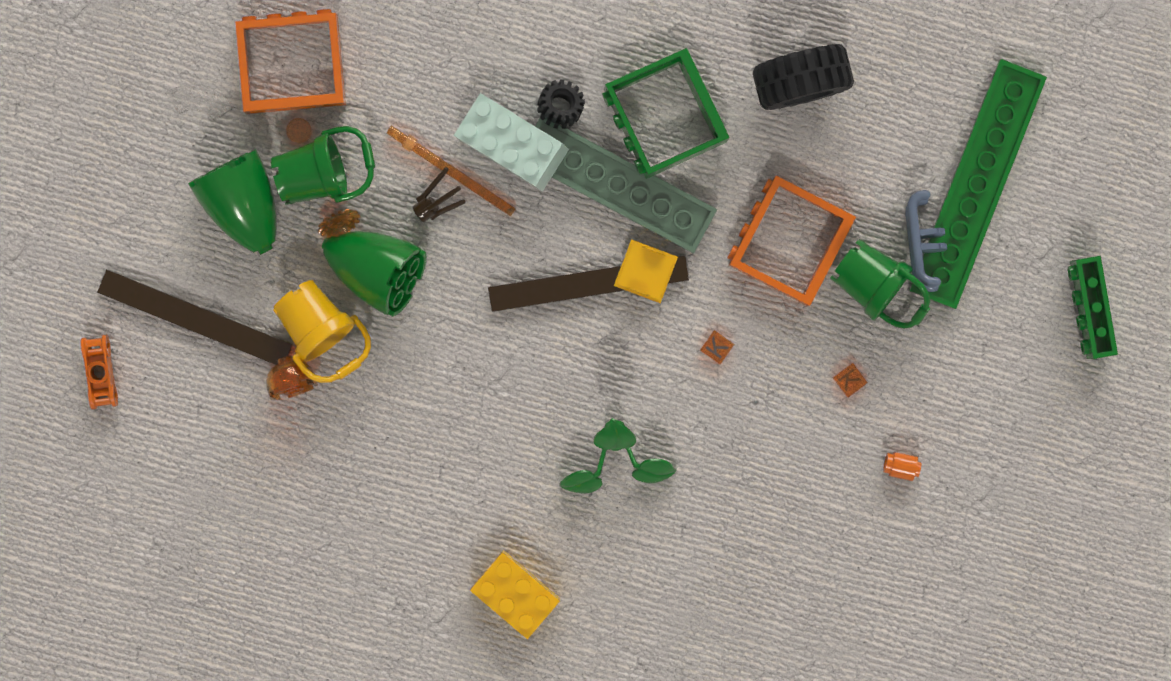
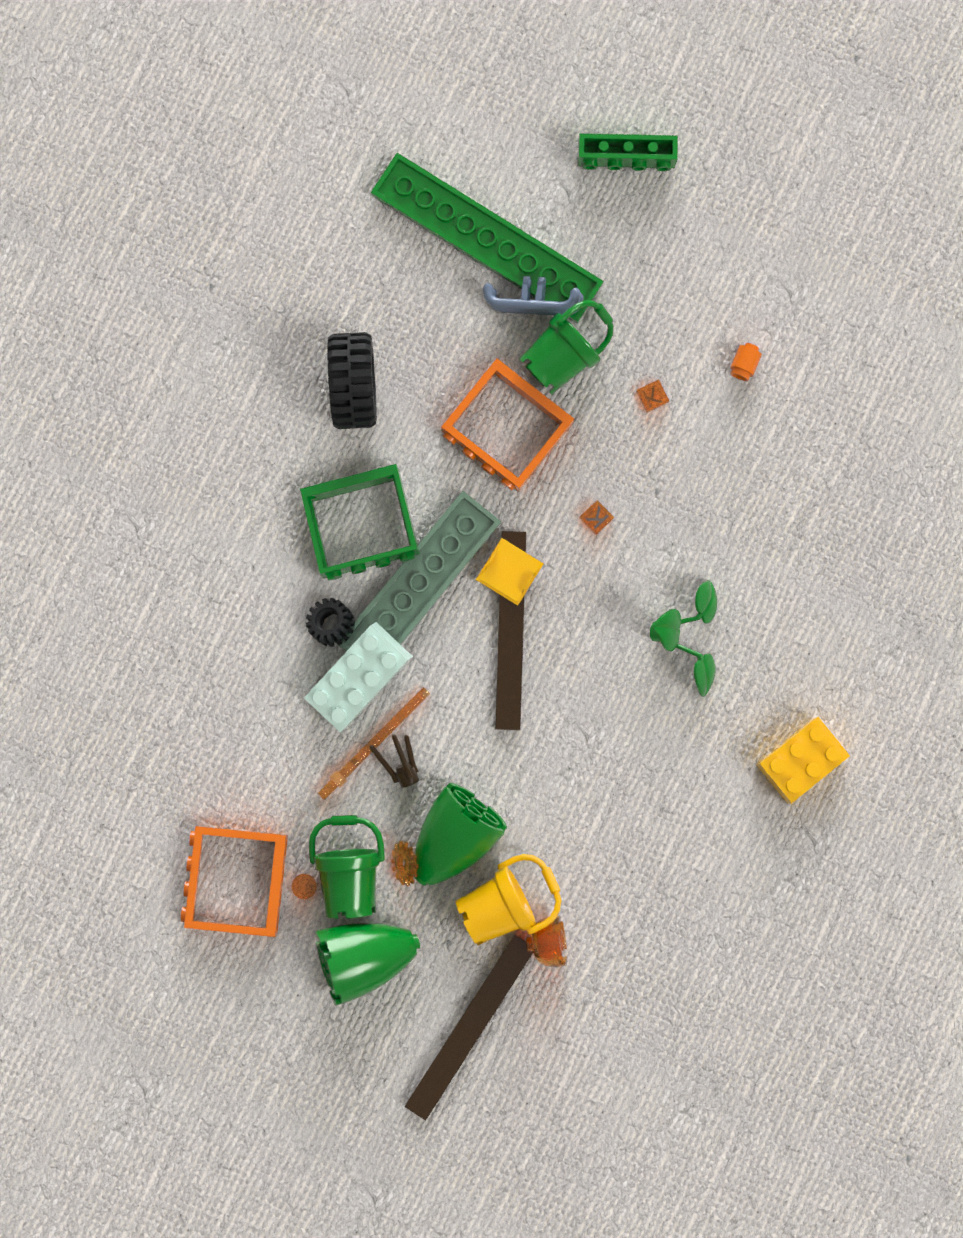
camera: 85 degrees left, 5 degrees down
(96, 386) = (520, 1136): orange piece -> none

